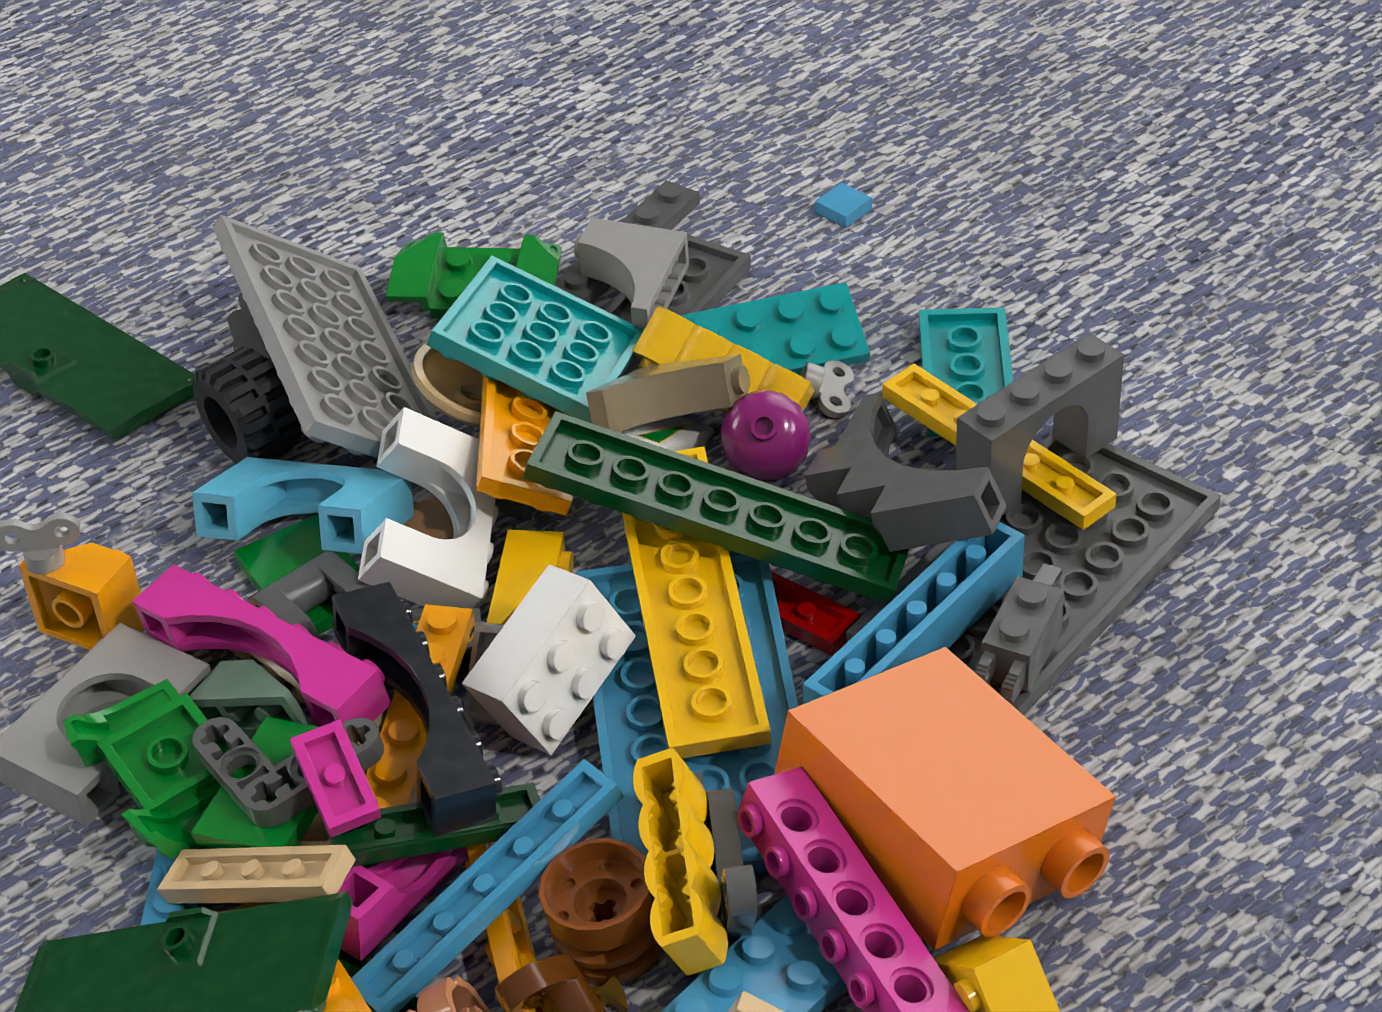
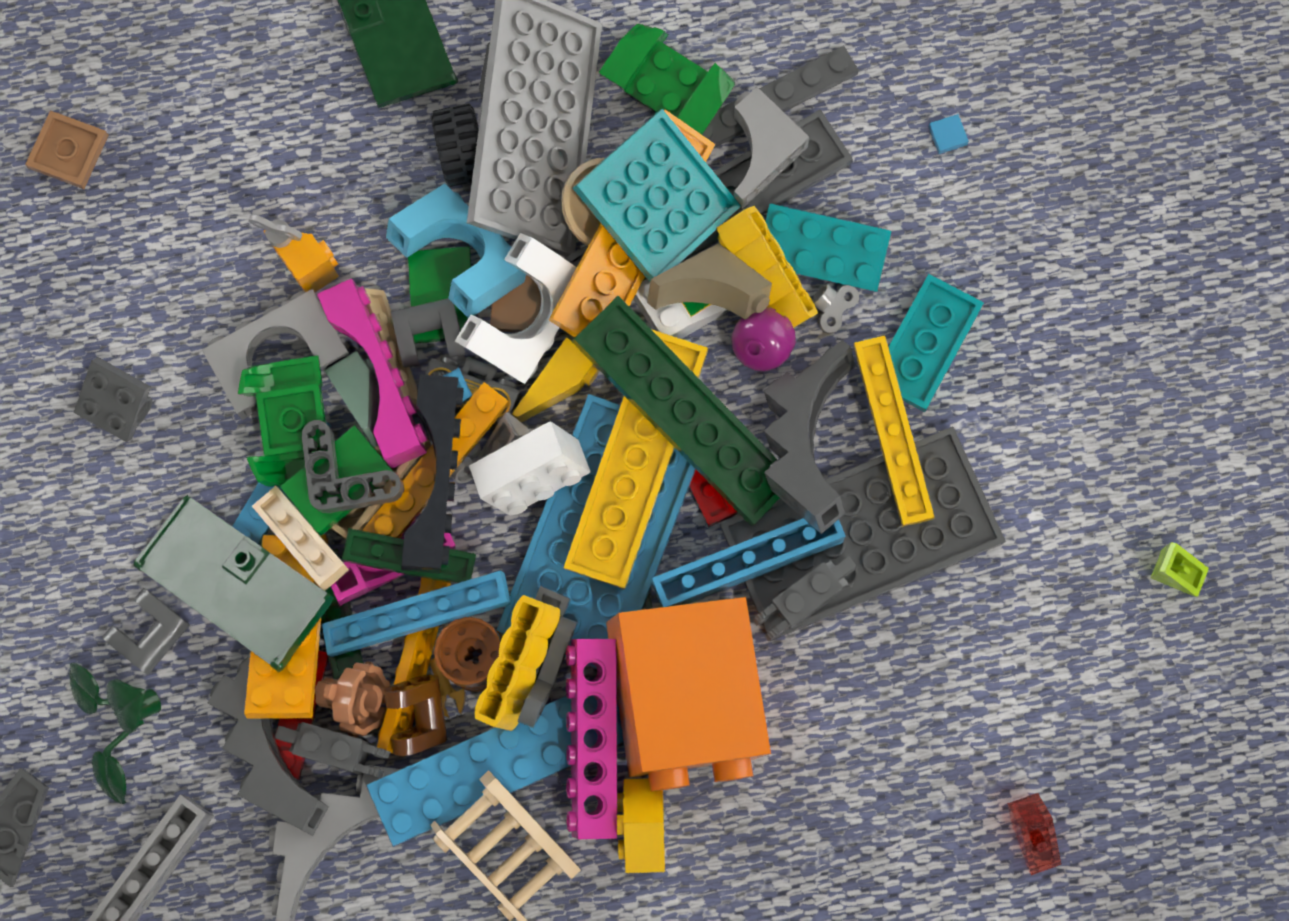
camera: 30 degrees right, 35 degrees up
(335, 778) = (358, 515): dark pink plate -> none
(1074, 386) = (952, 438): dark grey arch -> none

